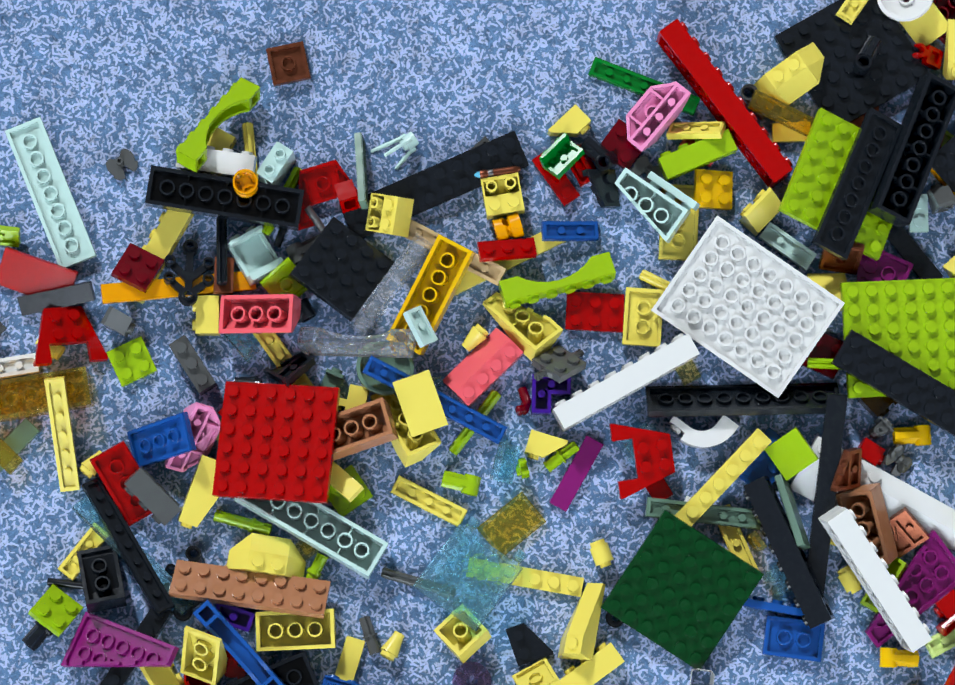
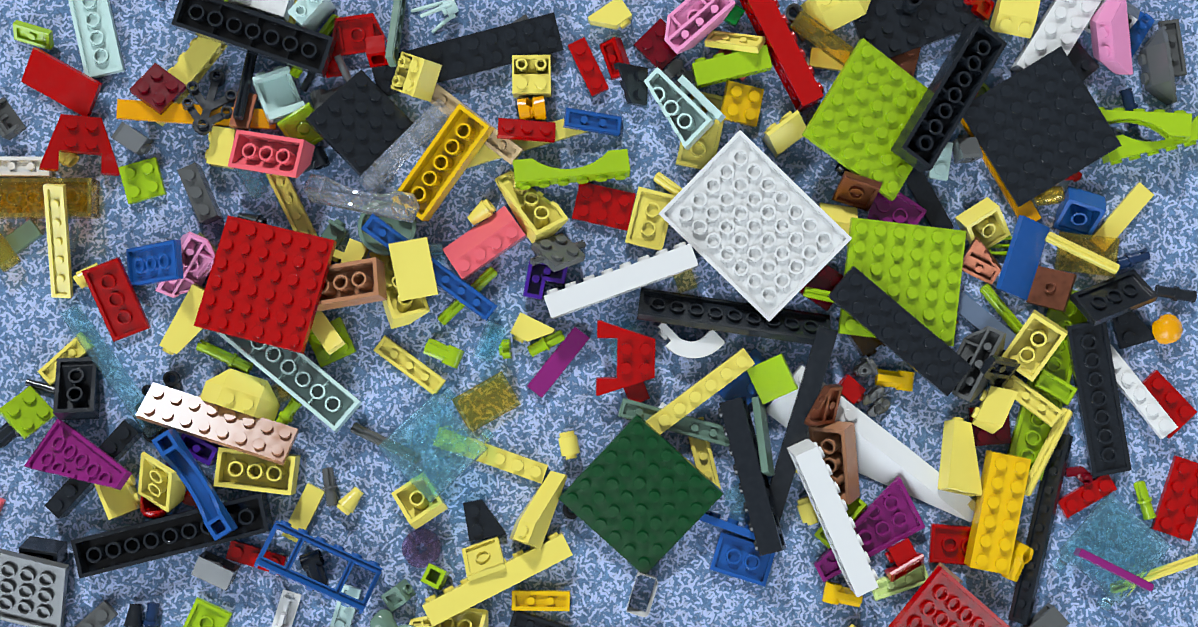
camera: 15 degrees right, 5 degrees up
(56, 297) = (77, 105): black tile -> none
(128, 546) = (106, 363): black tile -> none
(152, 496) = (137, 316): dark grey brick -> none
(245, 183) = (272, 20): light orange wheel -> none
(291, 369) = (294, 213): black wing -> none
(420, 326) = (425, 192): light aqua plate -> none
(497, 172) = (529, 51): copper piece -> none
(525, 398) = (520, 283): dark red arm -> none
(561, 156) = (595, 45): green bracket -> none
(598, 153) = (633, 49): black piece -> none
(755, 541) = (722, 459): clear yellow tile -> none
(787, 246) = (805, 172): light aqua plate -> none
(857, 184) = (885, 121): black plate -> none
(907, 531) = (872, 474): copper wing -> none

